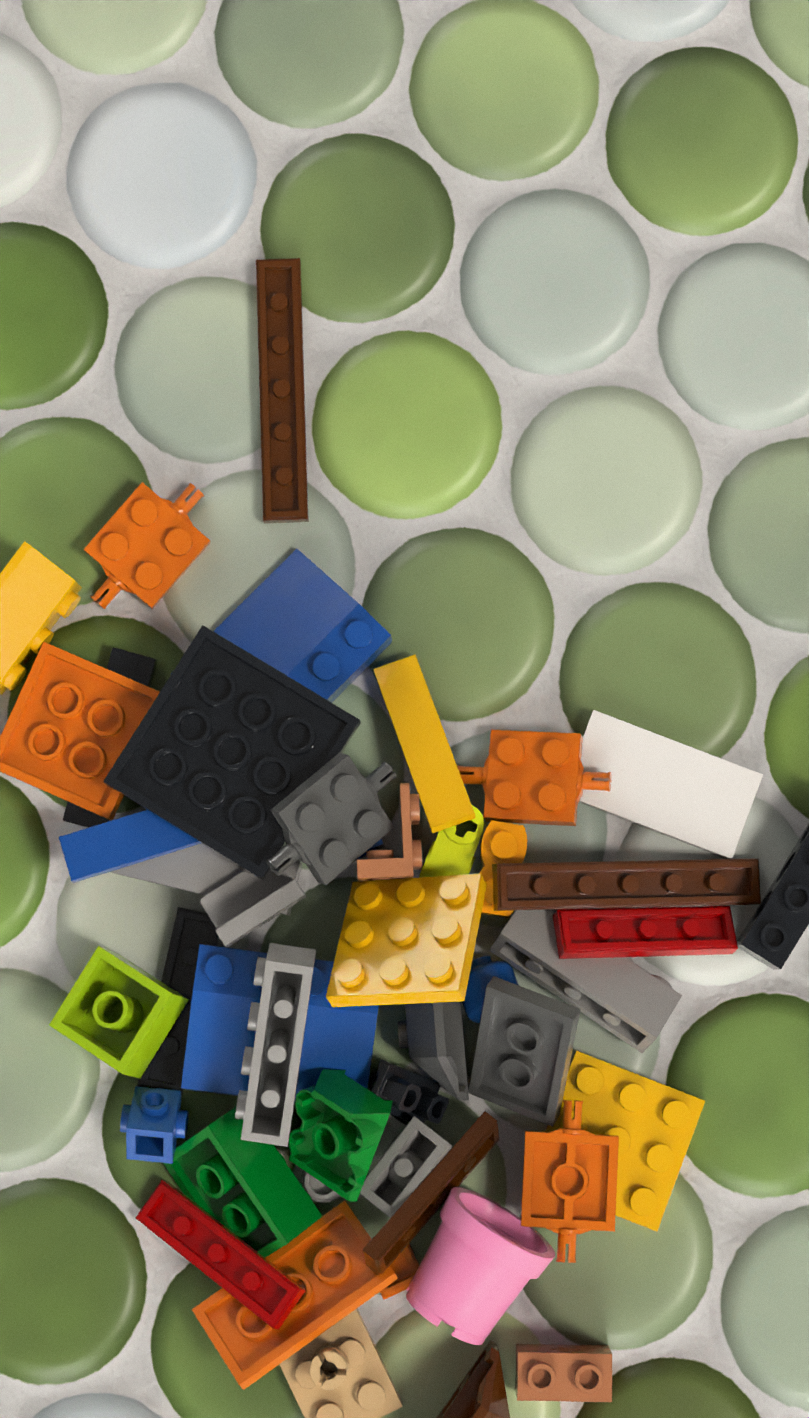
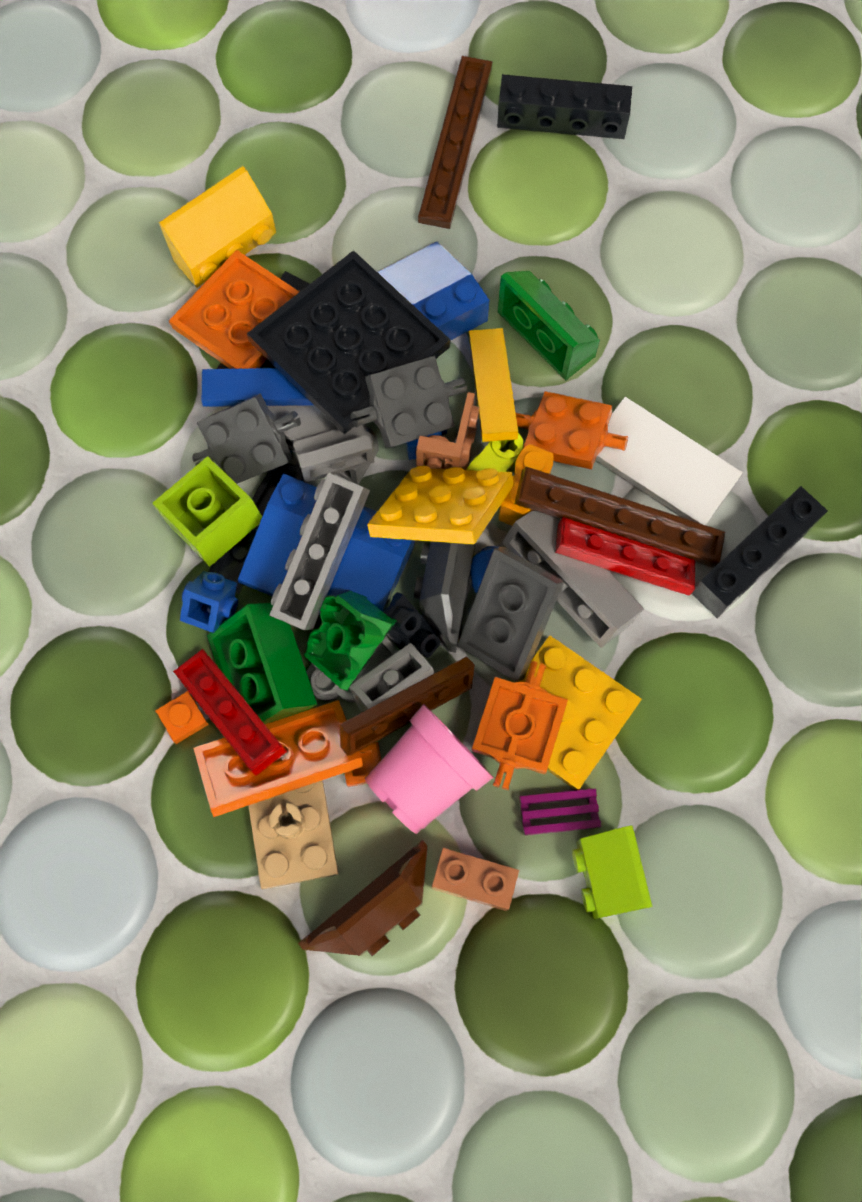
camera: 10 degrees right, 10 degrees down
(137, 908) = (246, 439): none -> dark grey plate
(147, 545) = (330, 213): orange plate -> none
(162, 1270) = (182, 717): none -> orange plate
(414, 311) = (564, 106): none -> black brick
(472, 635) = (546, 322): none -> green slope
(678, 1248) = (591, 808): none -> magenta tile
(719, 1326) = (612, 873): none -> lime slope

